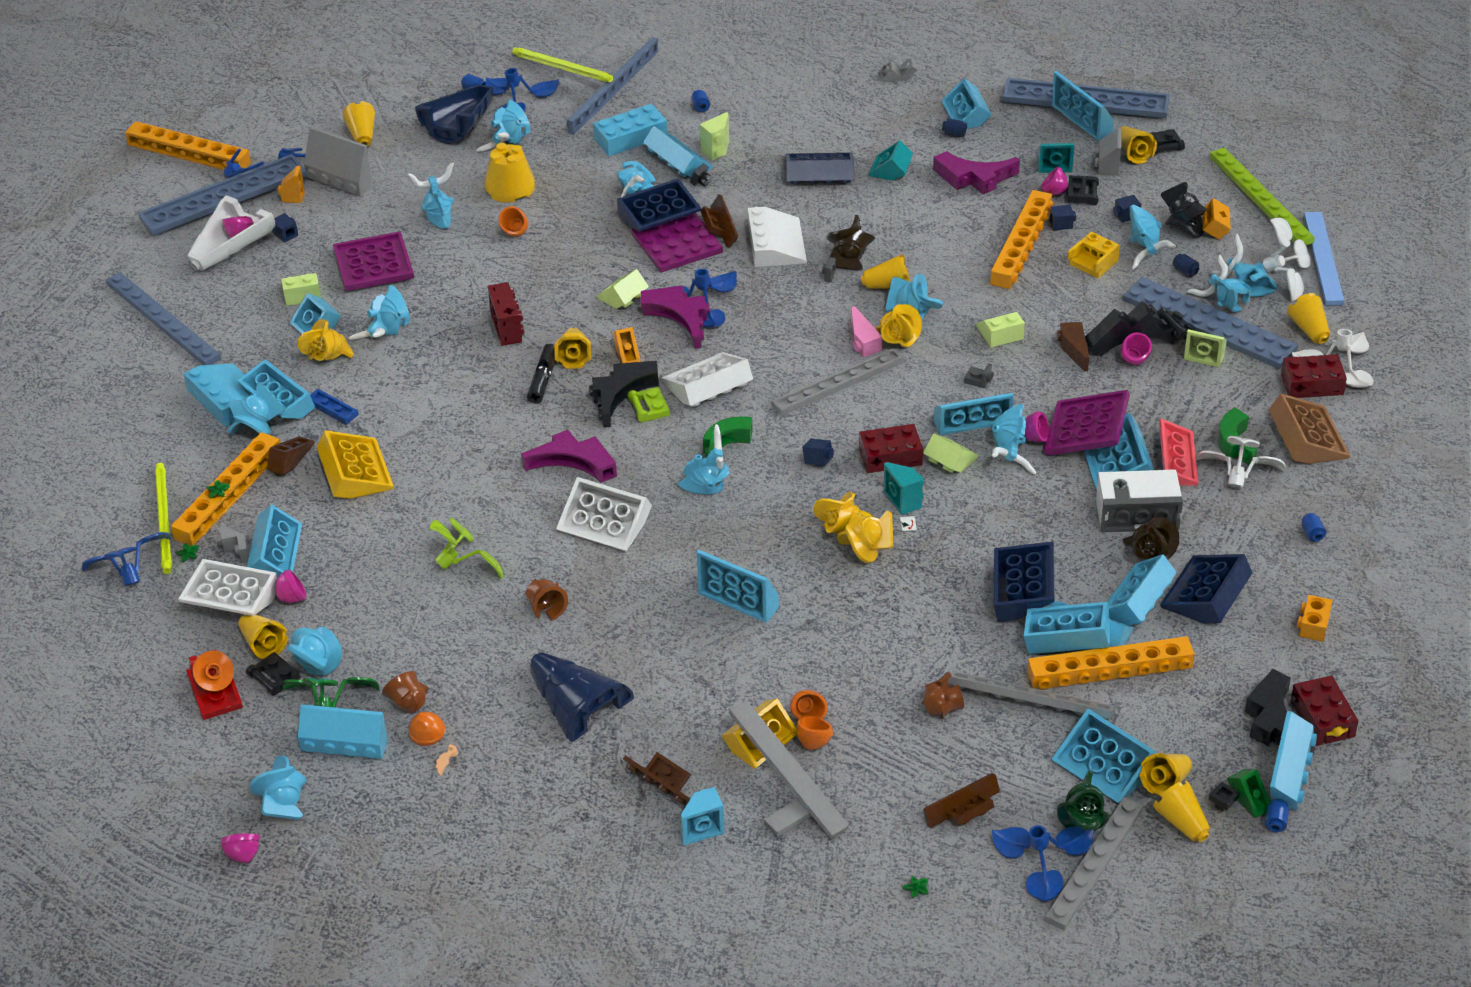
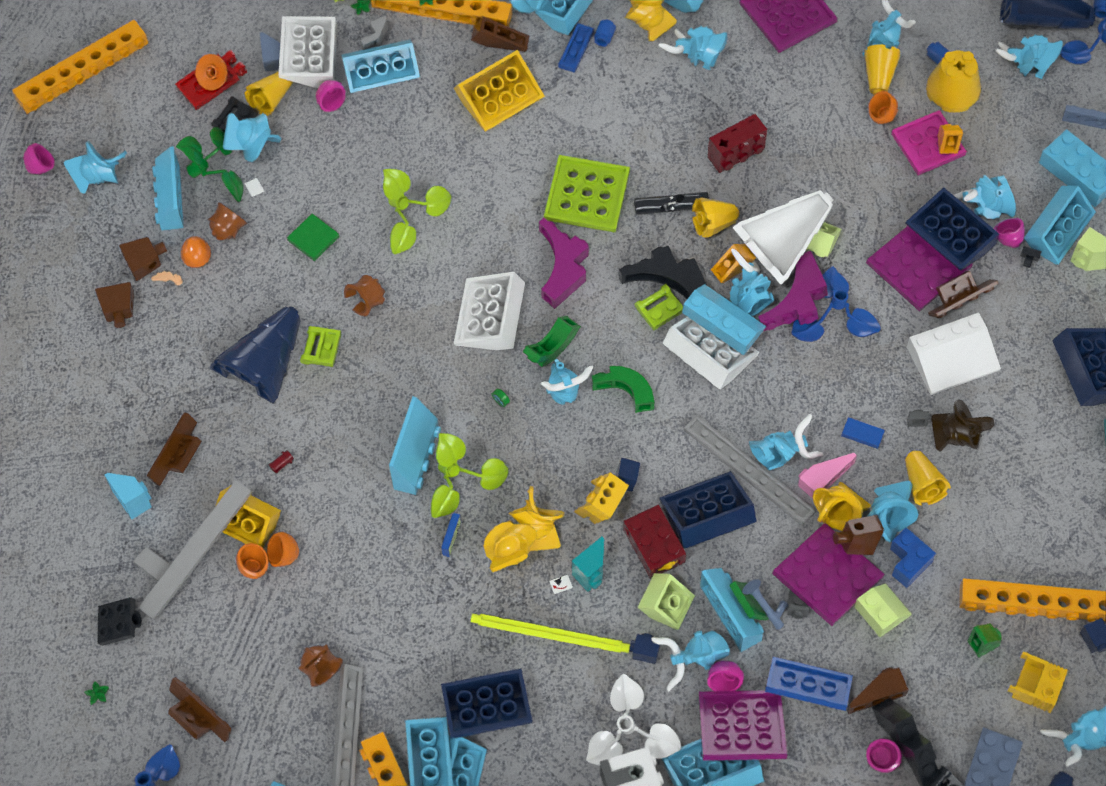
camera: 75 degrees right, 20 degrees up
(132, 793) = (80, 66): none -> light orange brick
(208, 627) = (270, 52): none -> sand blue slope
(328, 380) = (604, 32): none -> blue brick
(367, 672) = (254, 187): none -> white sticker
(412, 773) = (142, 256): none -> reddish brown torso
(453, 634) = (313, 237): none -> green tile
(460, 802) = (117, 302): none -> reddish brown torso
(471, 215) = (880, 66): none -> yellow cone
(472, 181) = (936, 52): none -> blue brick
(509, 407) = (594, 202): none -> lime piece
(559, 208) = (920, 143): none -> dark pink plate
(568, 185) = (949, 138): none -> light orange slope
(589, 641) = (326, 348): none -> lime plate
(626, 293) = (785, 232): none -> white cone
(657, 475) = (553, 343): none -> green arch
(664, 339) = (750, 292): none -> medium azure helmet
(673, 172) = (1011, 232): none -> dark pink hat
(689, 356) = (722, 318): none -> medium azure slope
(701, 524) = (500, 397): none -> green tile
(704, 693) = (280, 462): none -> dark red pin
(766, 568) = (448, 451): none -> lime plant
(828, 306) = (863, 433): none -> blue tile
(828, 354) = (780, 447): none -> medium azure helmet
(835, 583) = (451, 534): none -> blue tile
(840, 465) = (603, 499): none -> yellow piece
(844, 852) = (117, 621): none -> black plate
(868, 406) = (708, 509): none -> dark blue slope
(934, 318) = (860, 535): none -> reddish brown torso
(956, 537) = (550, 633): none -> neon yellow piece
(958, 350) = (827, 575): none -> magenta plate
(960, 297) = (915, 557): none -> blue brick
(967, 381) = (774, 616): none -> sand blue piece
(971, 394) = (748, 602): none -> green tile
(993, 474) = (644, 648): none -> dark blue brick
(1048, 274) = (984, 639): none -> green slope
(1057, 380) = (809, 683): none -> blue plate
(1080, 522) = (625, 696): none -> white plant

